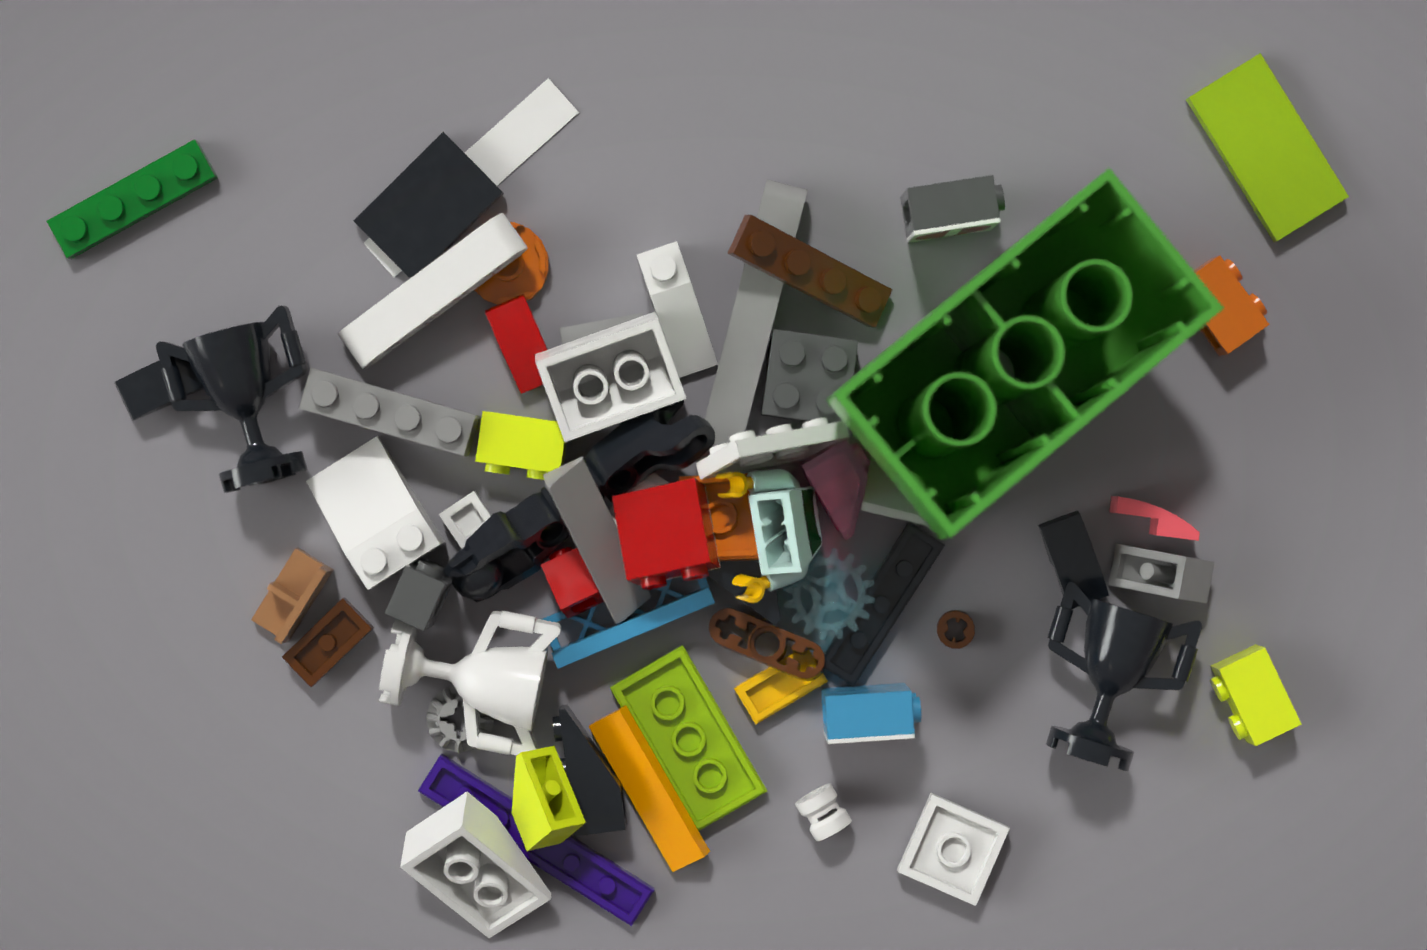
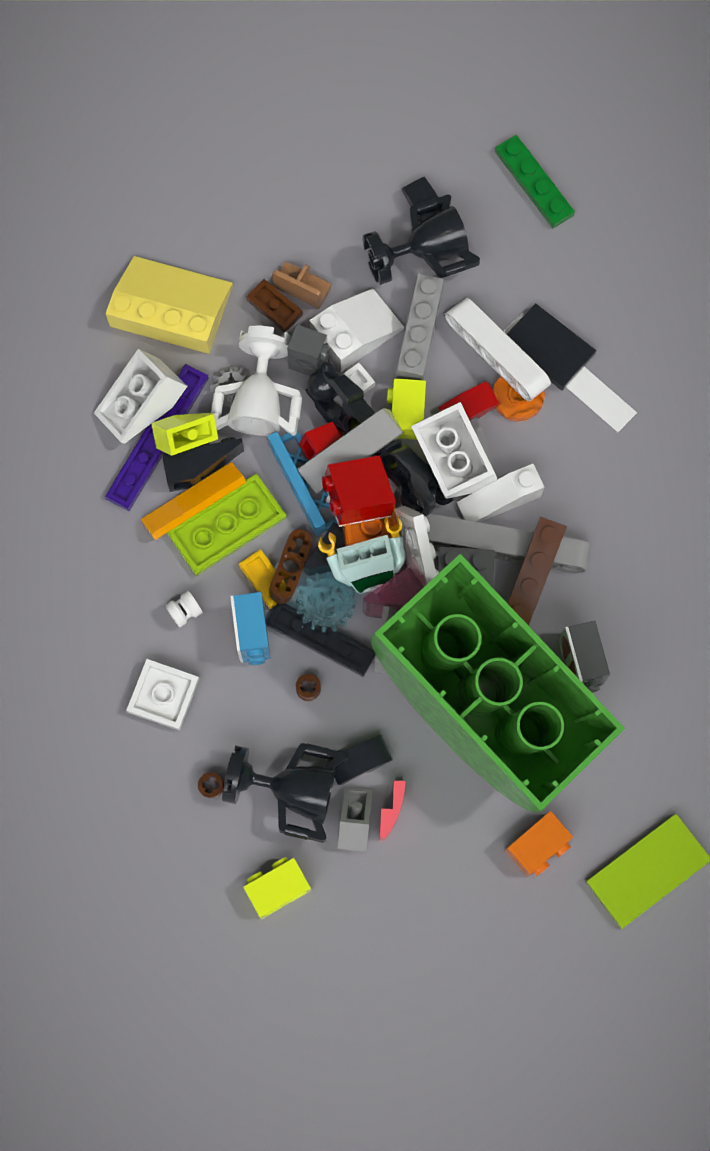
camera: 85 degrees right, 15 degrees down
(309, 810) = (169, 304): none -> light yellow slope
(1102, 774) = (206, 778): none -> reddish brown bush

